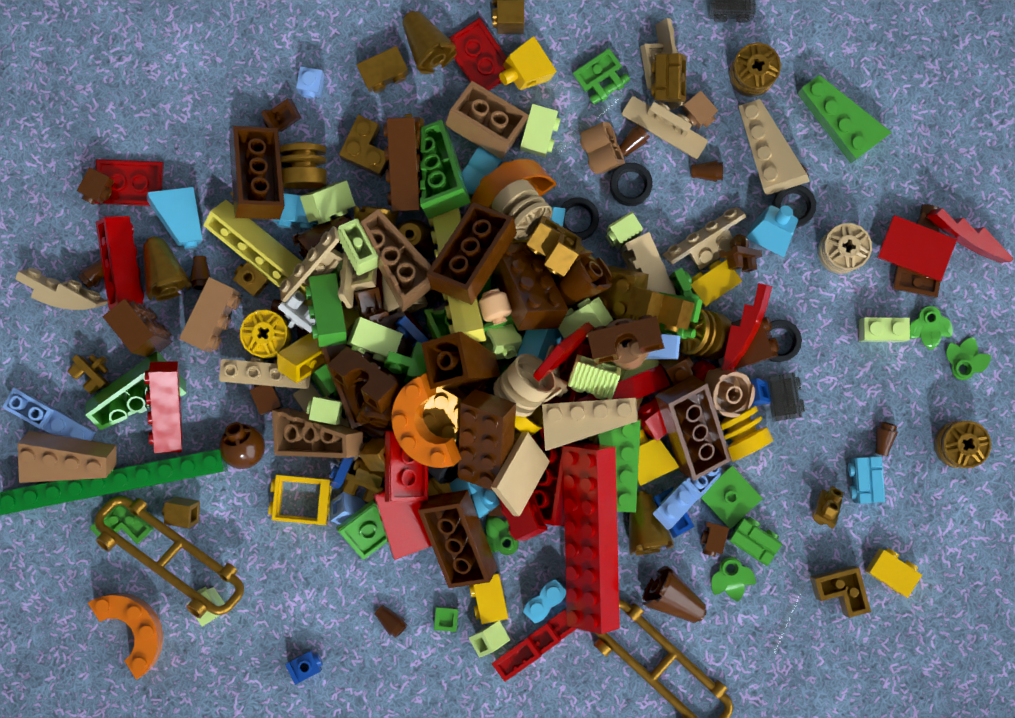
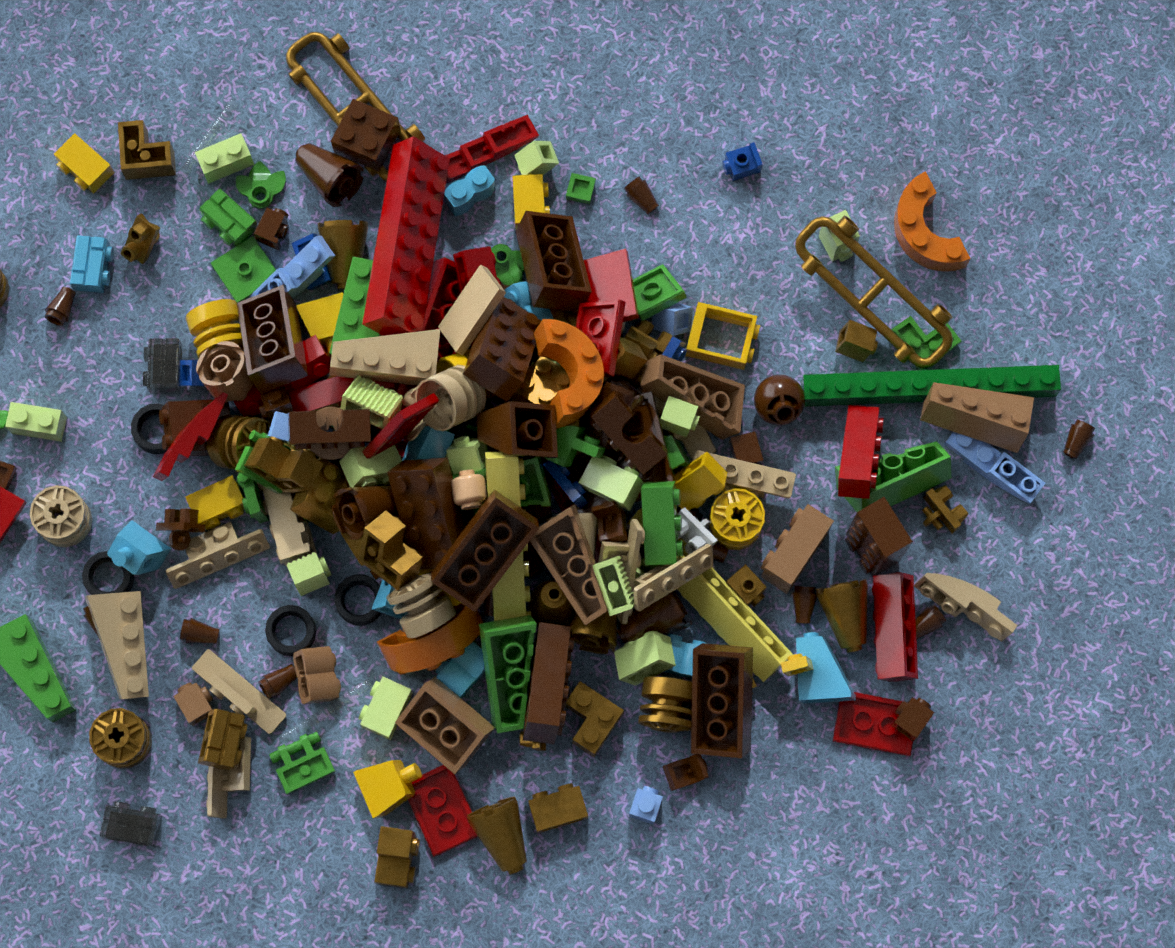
camera: 170 degrees left, 10 degrees down
(197, 213) = (796, 664): none -> yellow plate
(646, 635) = (365, 135): none -> reddish brown brick
(769, 596) = (224, 158): none -> yellowish green brick

